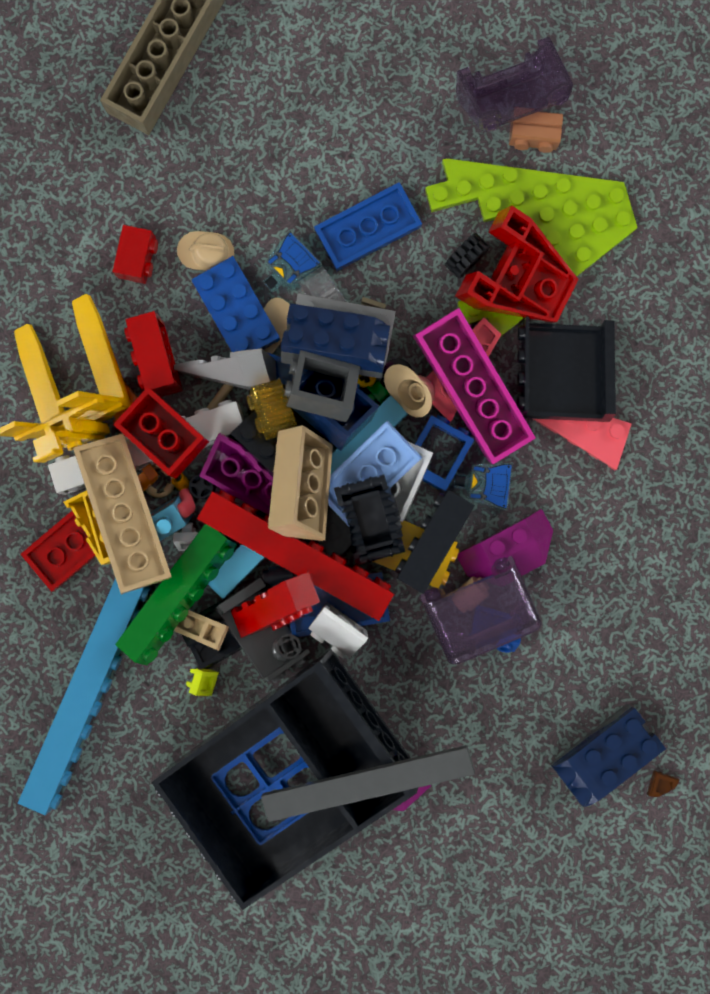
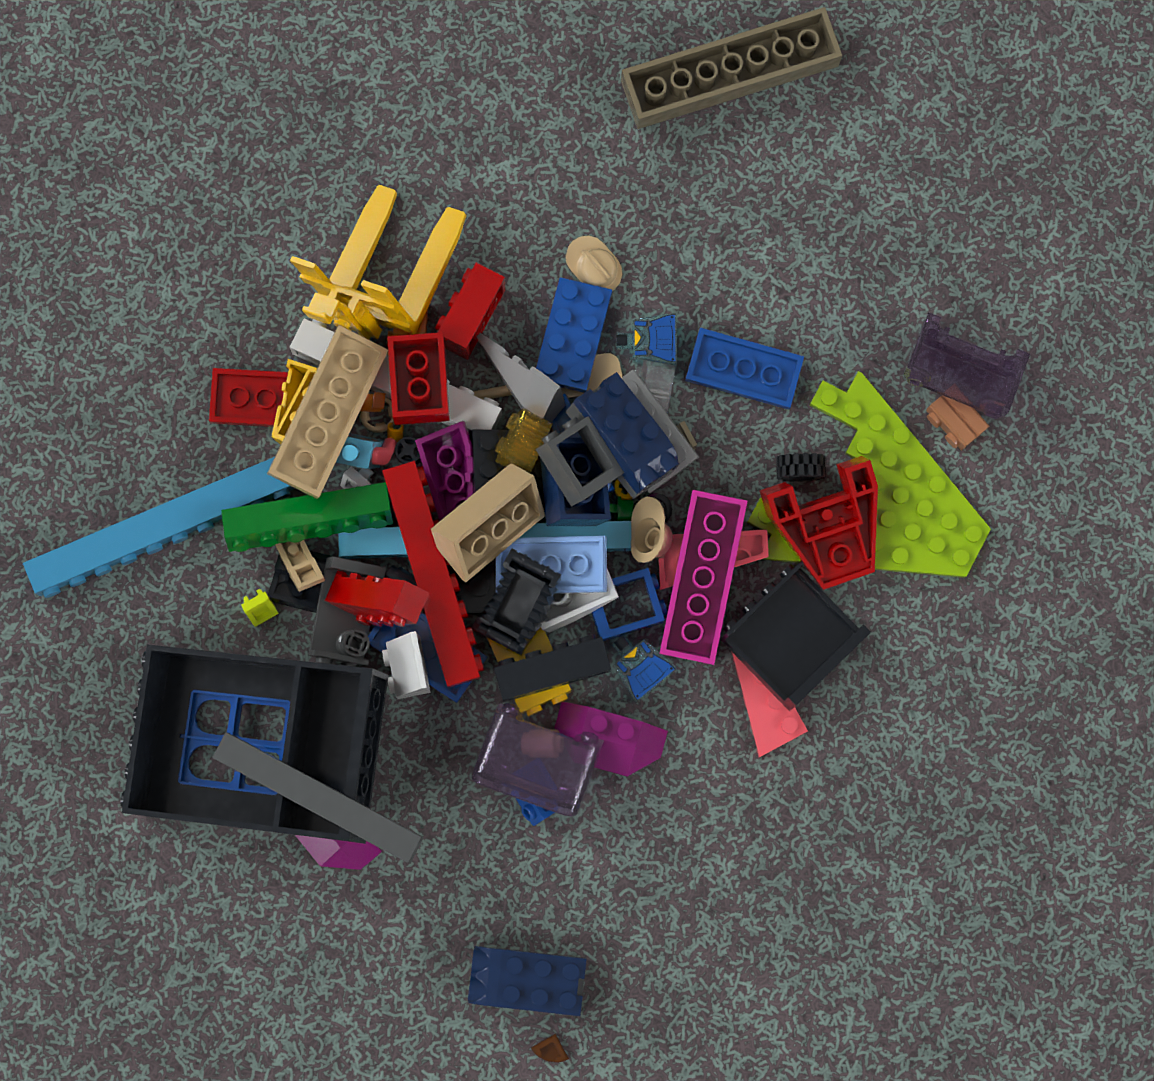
camera: 30 degrees right, 5 degrees down
(135, 254) = (534, 215): red brick -> none

